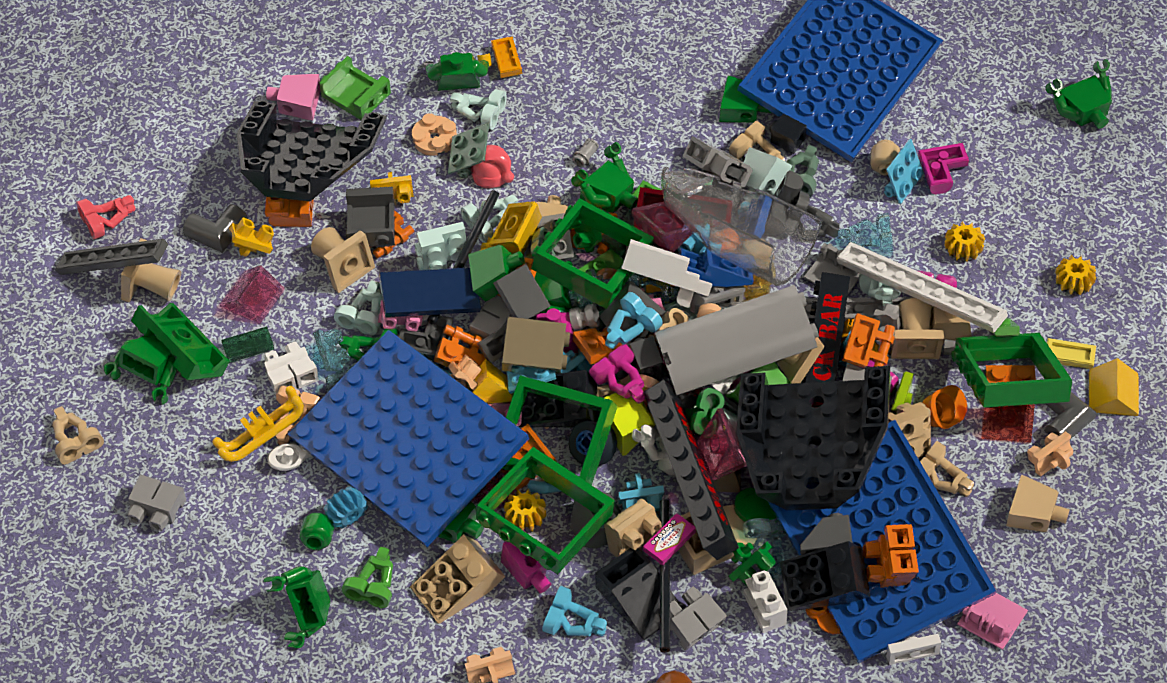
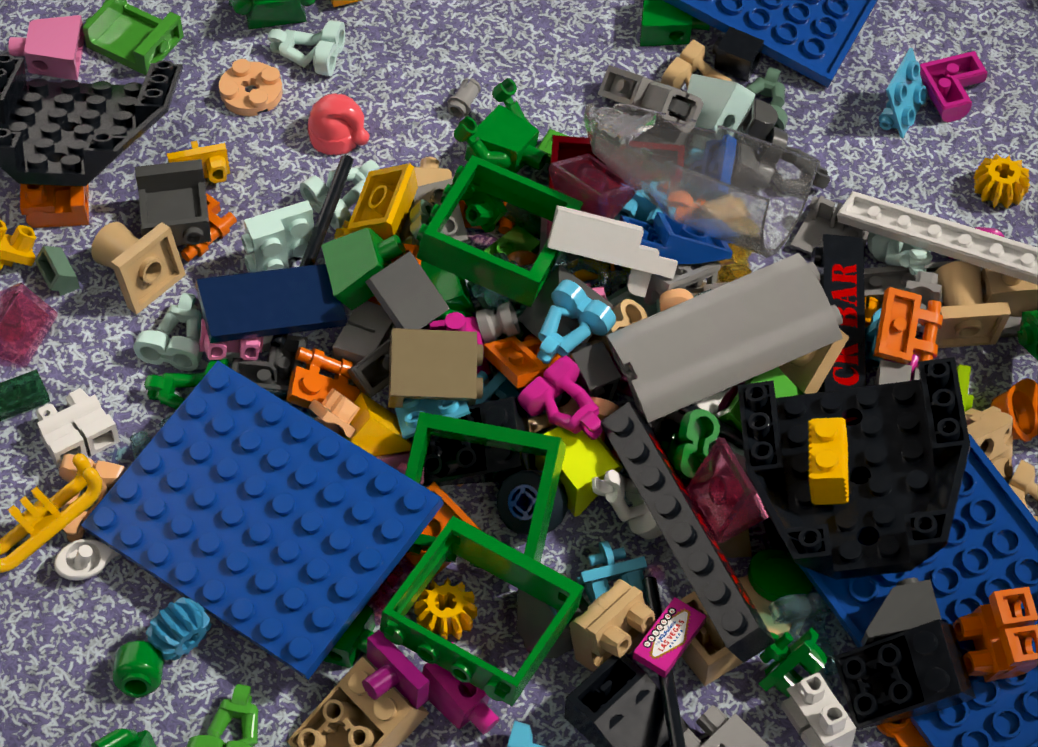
camera: 10 degrees left, 0 degrees up
(286, 258) = (56, 270): none -> sand green piece
(326, 353) = (127, 401): clear light blue hips -> none
(468, 150) = (301, 104): sand green hinge -> none
(482, 545) = (393, 671): none -> magenta tile
(541, 487) = (465, 573): medium azure arm -> none
(791, 430) = (828, 461): none -> yellow brick
(882, 155) = (873, 76): tan head -> none
(882, 230) = (886, 171): clear light blue piece -> none

